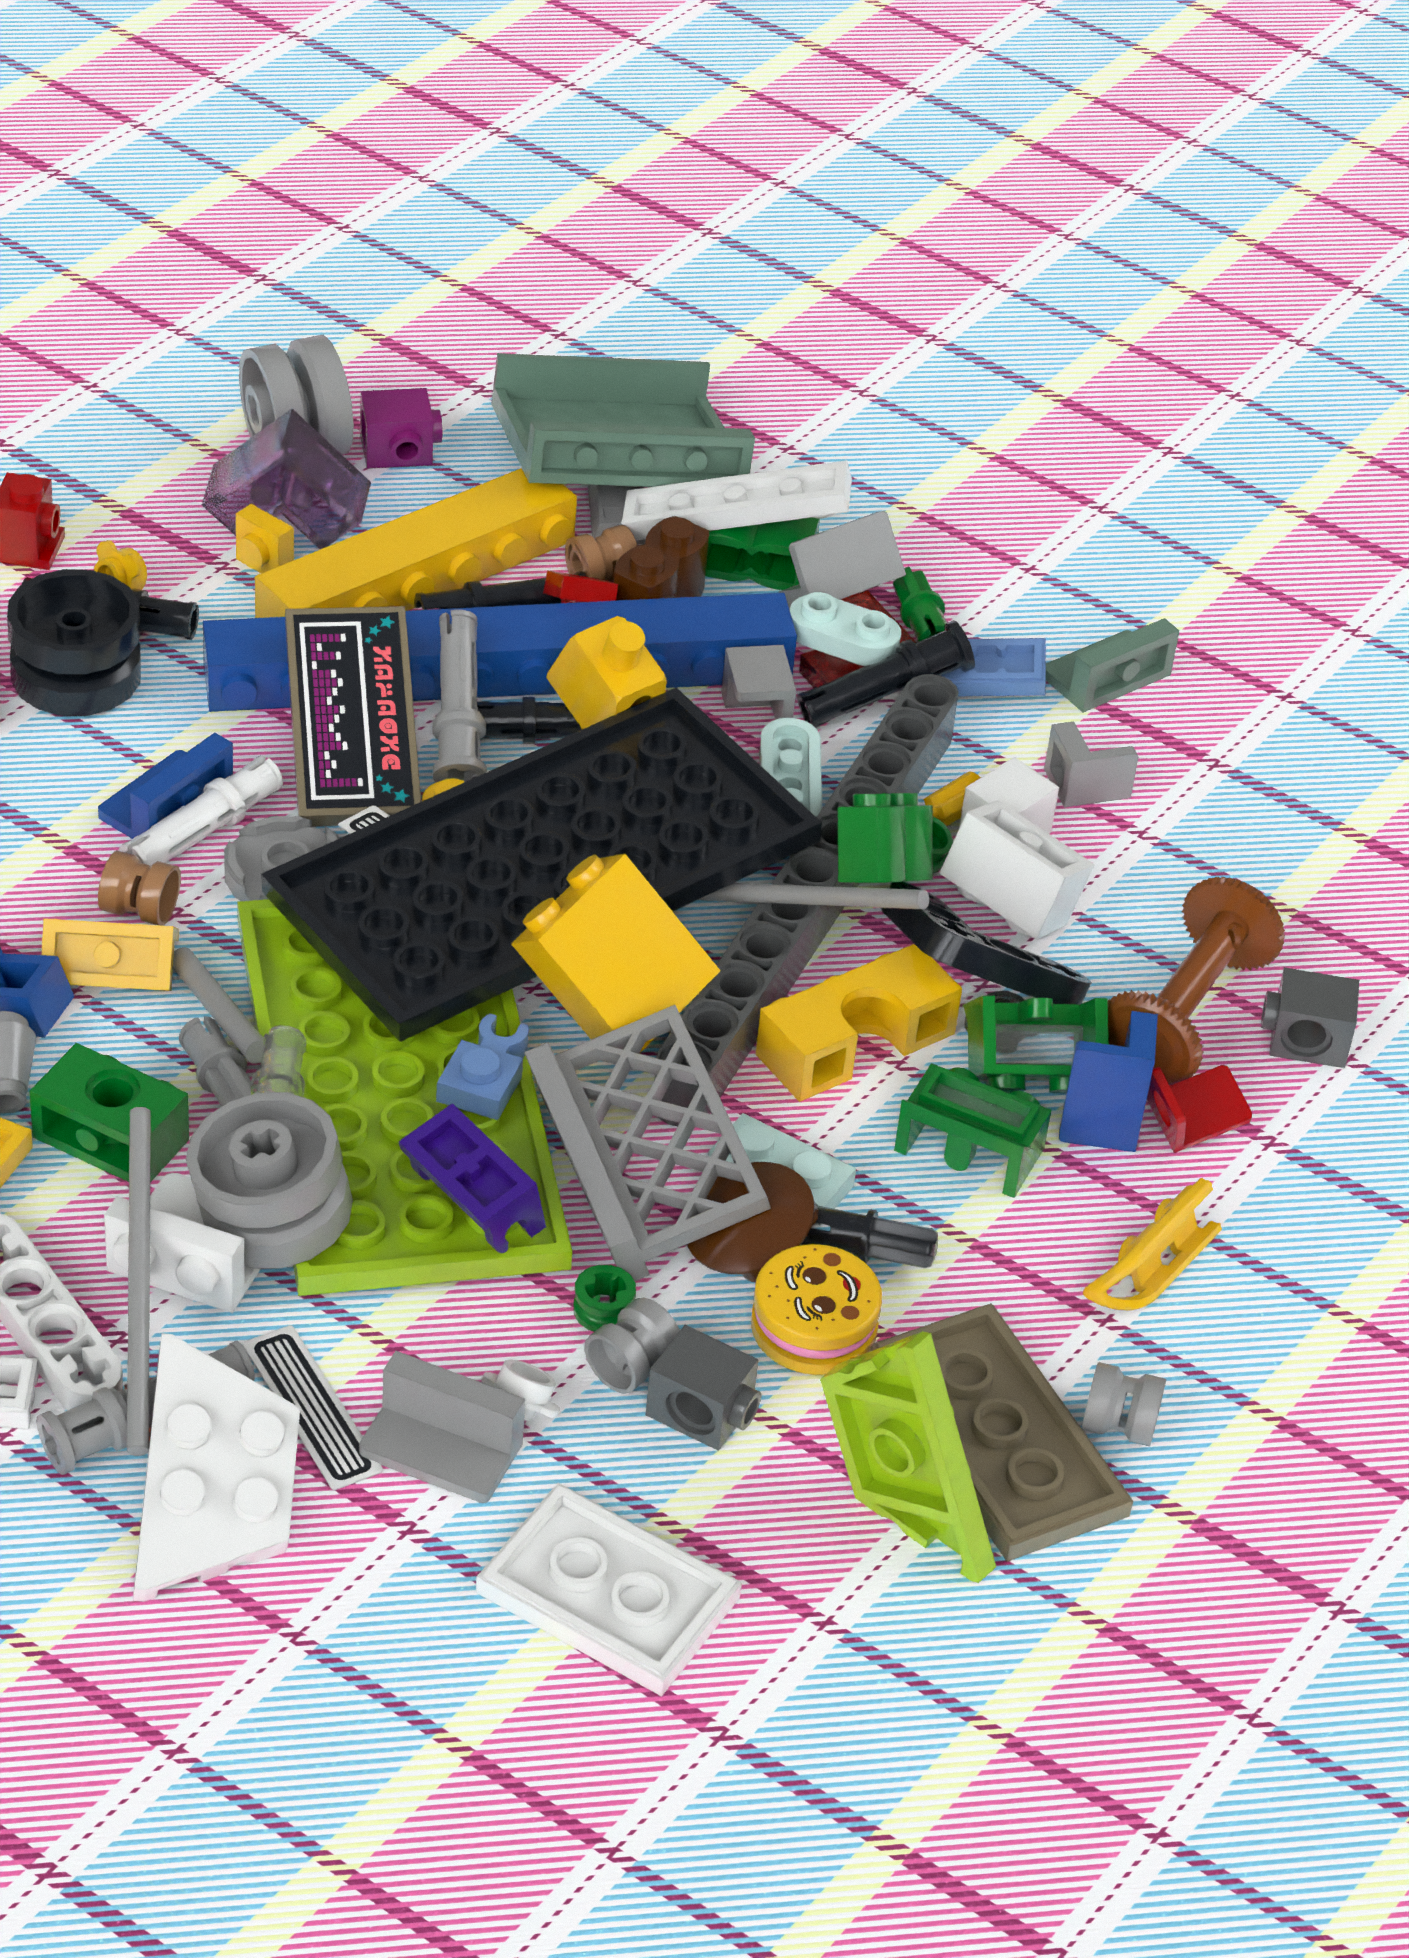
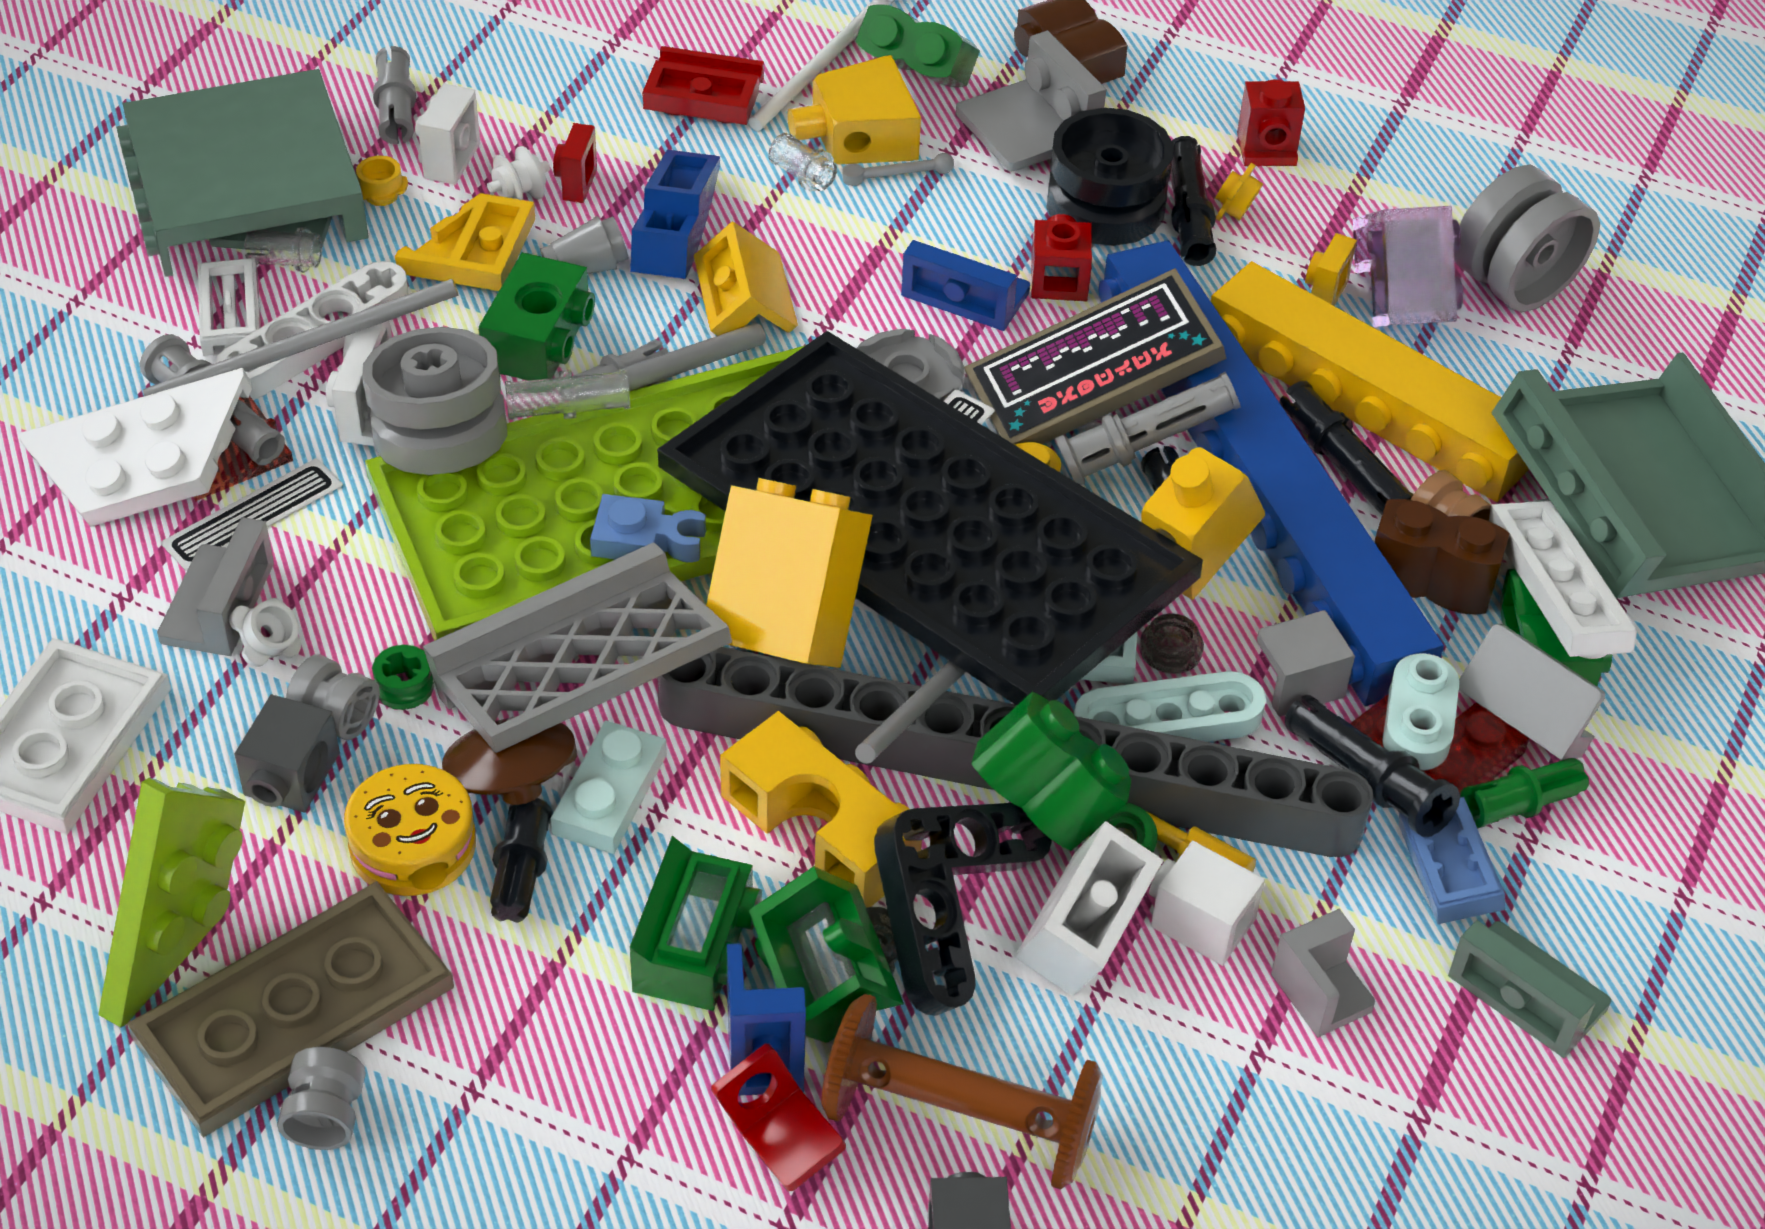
camera: 80 degrees right, 5 degrees up
(139, 888) = (820, 283): medium nougat wheel -> none
(164, 712) = (1061, 243): none -> red brick
(220, 805) = (955, 314): white pin -> none
(398, 428) = (1566, 330): magenta brick -> none
(475, 1175) = (474, 533): dark purple hinge -> none
(579, 588) = (1364, 486): red plate -> none
(1141, 1254) = (548, 1105): yellow piece -> none

